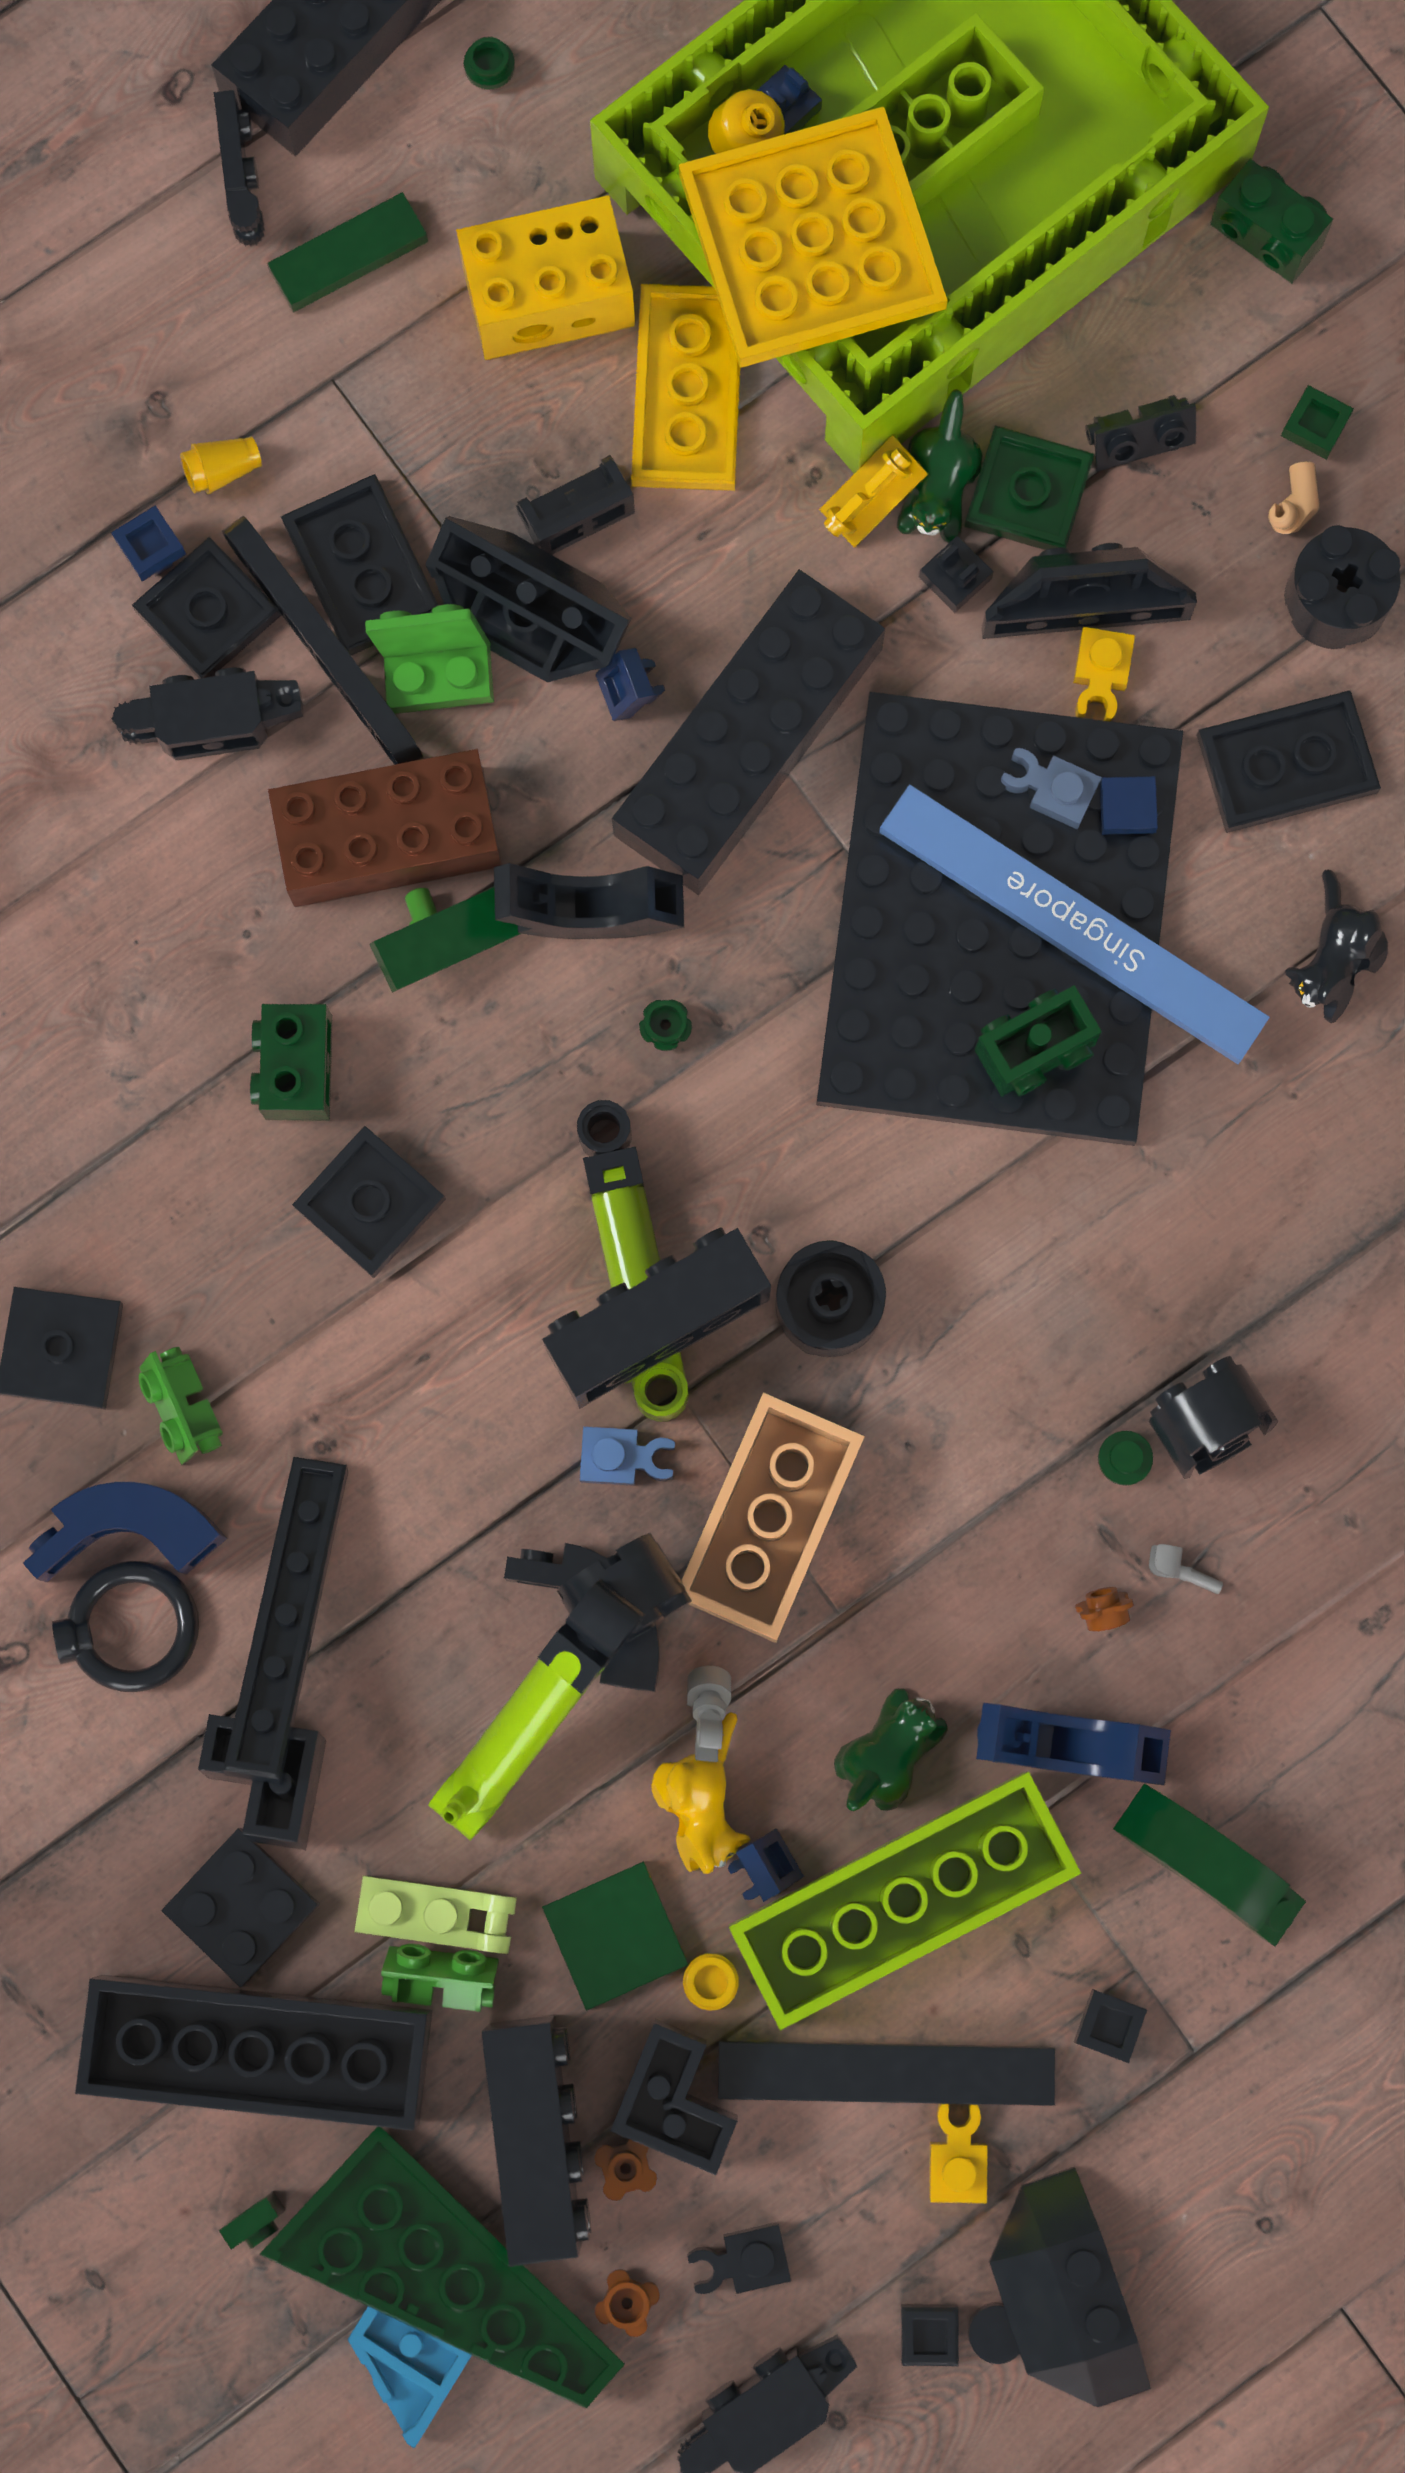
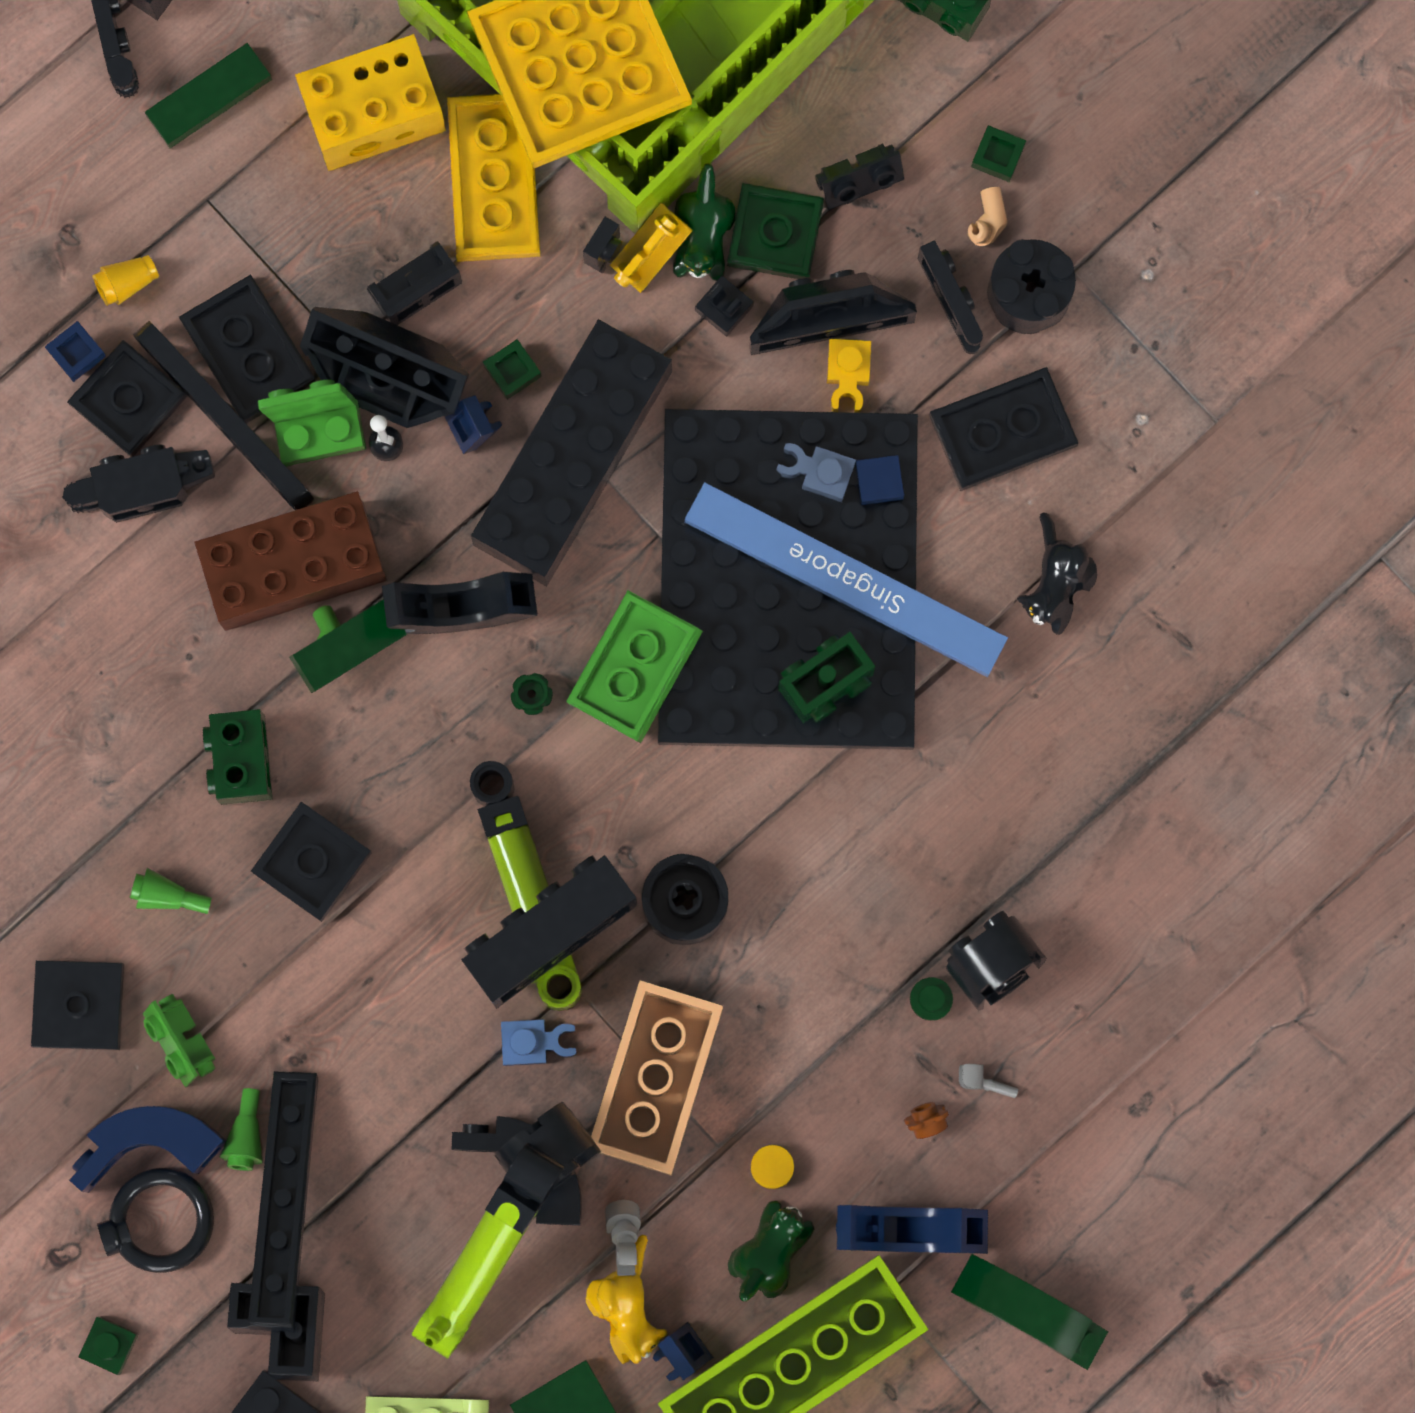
camera: 10 degrees left, 0 degrees up
(49, 1775) = (108, 1345): none -> dark green plate
(176, 1219) = (158, 892): none -> bright green cone
(246, 1540) = (243, 1142): none -> bright green cone
(515, 690) = (385, 435): none -> black hinge
(685, 623) = (512, 369): none -> dark green plate
(797, 1003) = (634, 666): none -> bright green tile
(814, 480) = (603, 245): none -> black plate
(903, 1646) = (772, 1166): none -> yellow tile
(1243, 595) = (954, 300): none -> black hinge

